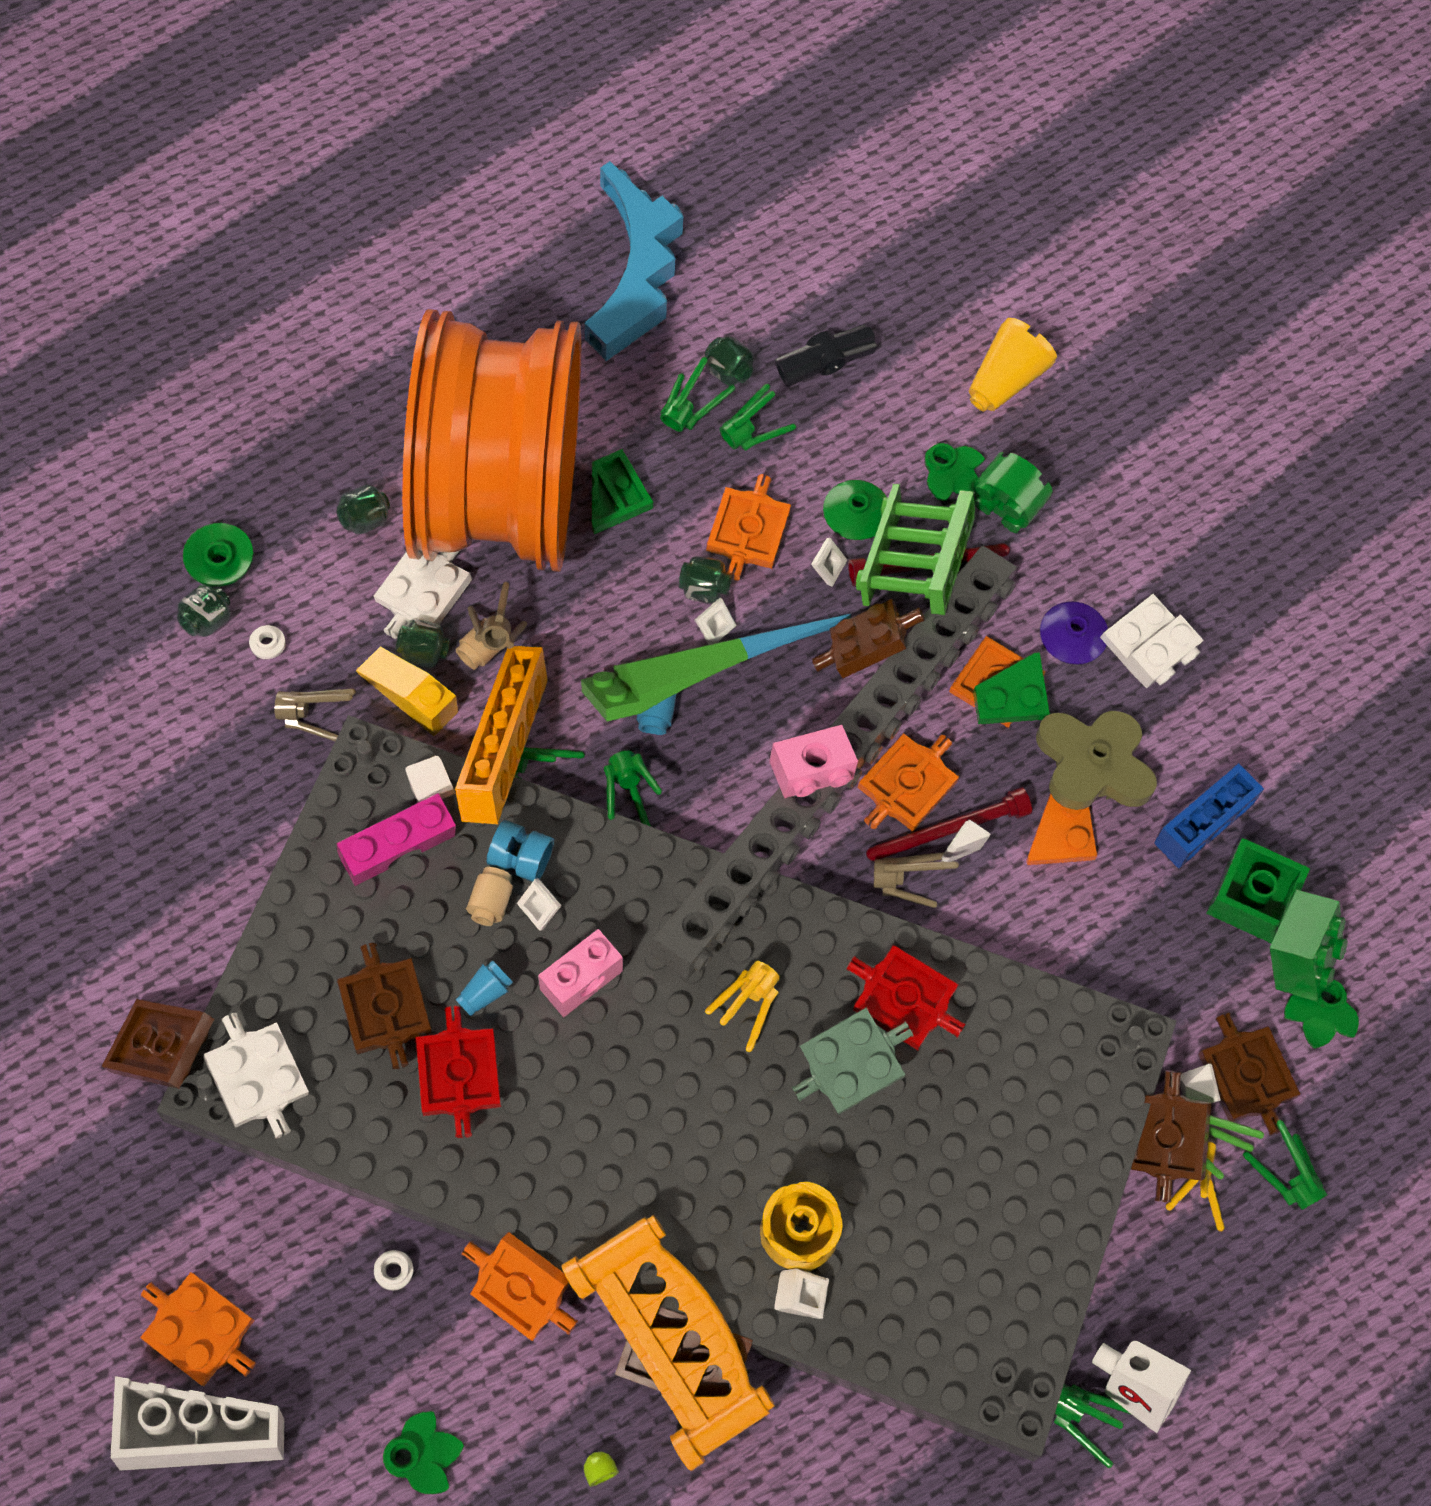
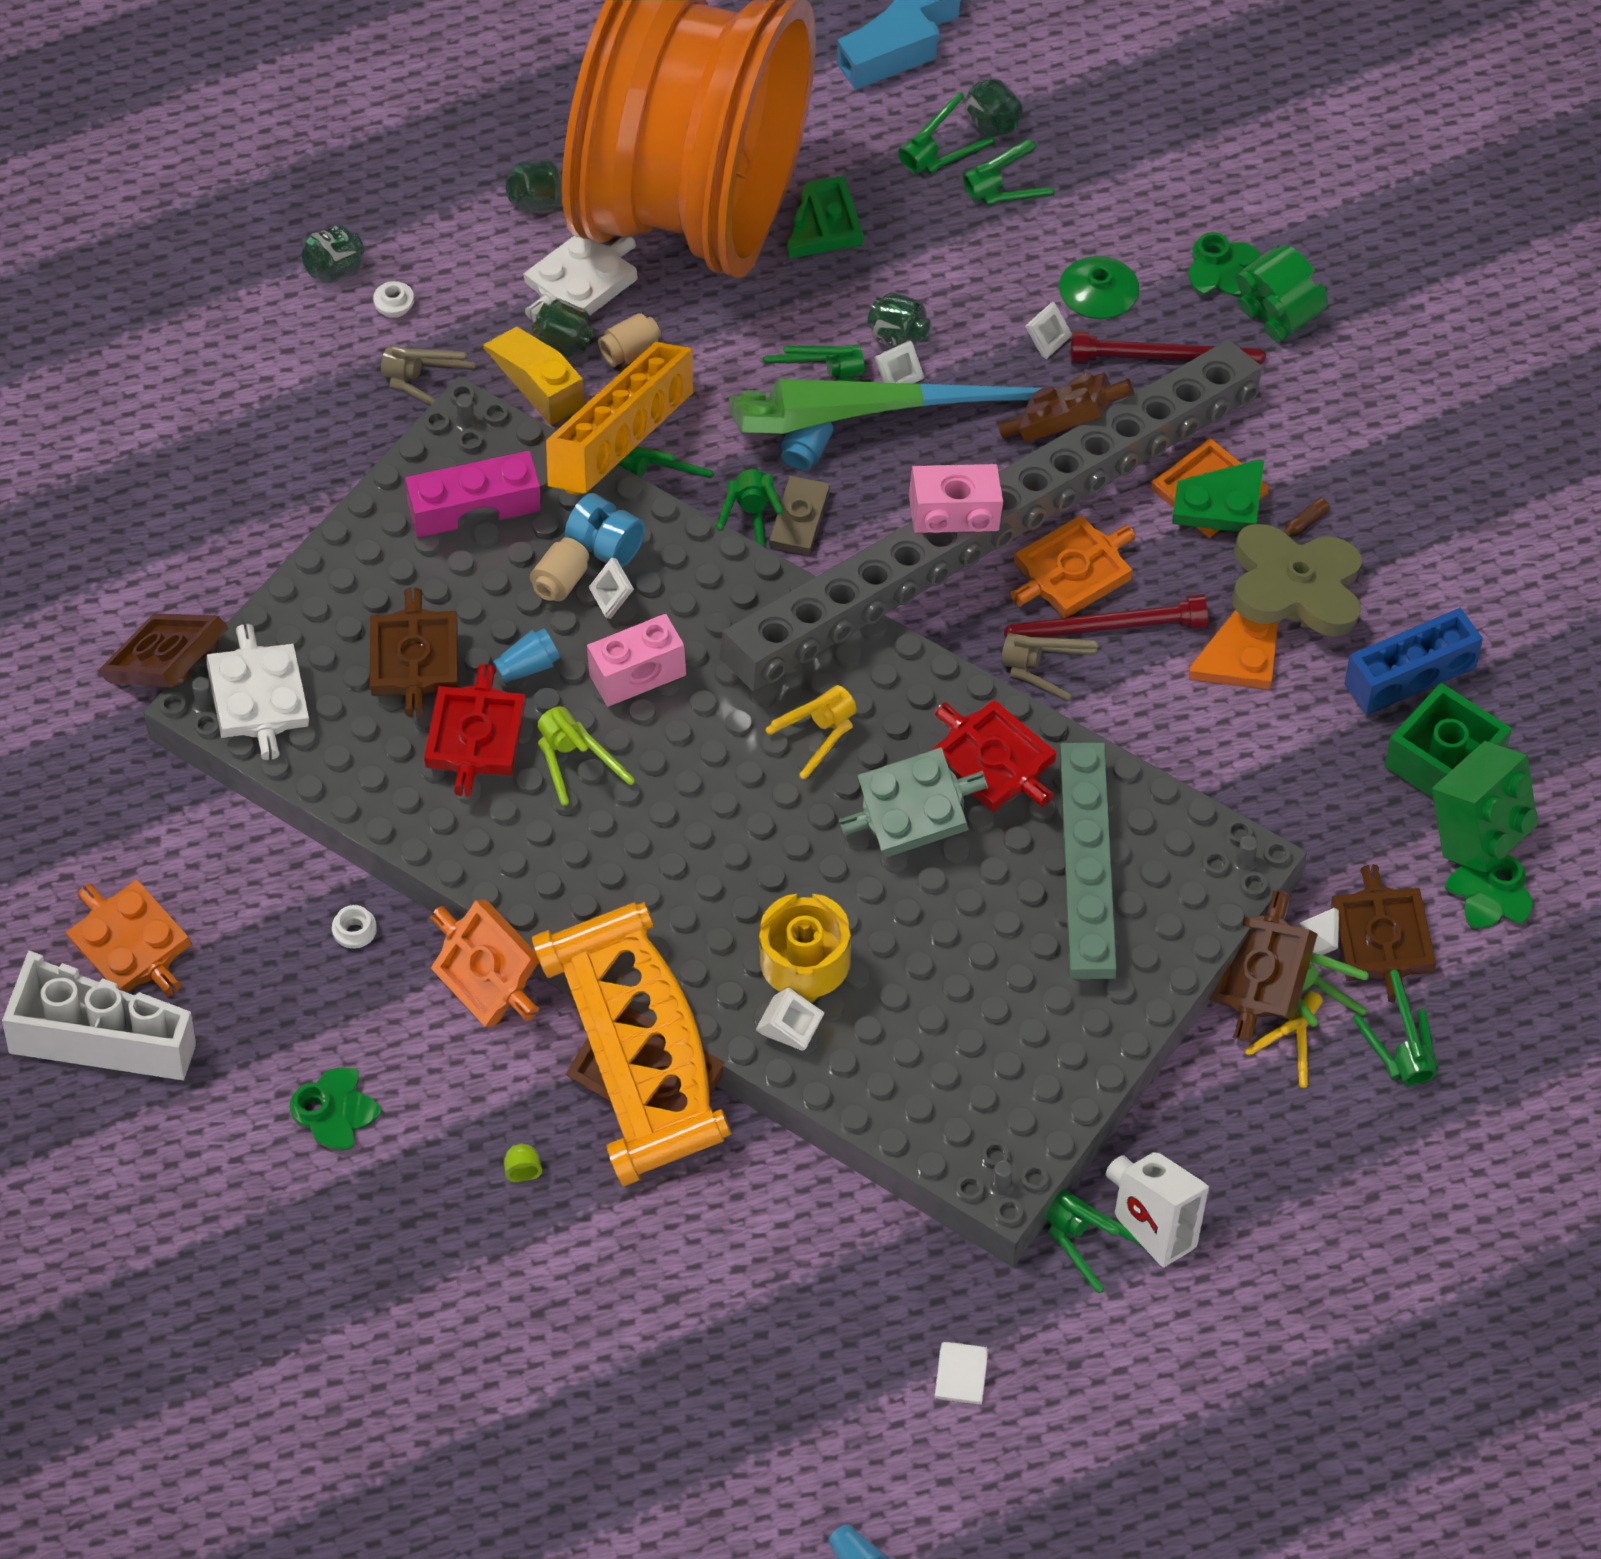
camera: 20 degrees right, 10 degrees down
(216, 541) = (364, 190): green dish -> none
(429, 778) = (527, 438): white slope -> none
(496, 629) = (646, 318): dark tan plant -> none
(536, 1057) = (565, 734): none -> lime plant
(666, 628) = (841, 361): none -> green plant
(670, 772) = (801, 516): none -> dark tan plate
(748, 527) = (966, 280): orange plate -> none
(825, 354) = (1108, 121): black piece -> none
(944, 564) = (1168, 350): bright green fence -> none
(967, 840) = (1120, 636): white slope -> none
(1008, 1080) = (1087, 861): none -> sand green plate
(1010, 365) = (1320, 165): yellow cone -> none
(1072, 645) = (1315, 467): dark purple dish -> none
(1082, 693) = (1307, 517): none -> reddish brown piece
(1152, 641) = (1405, 478): white plate -> none

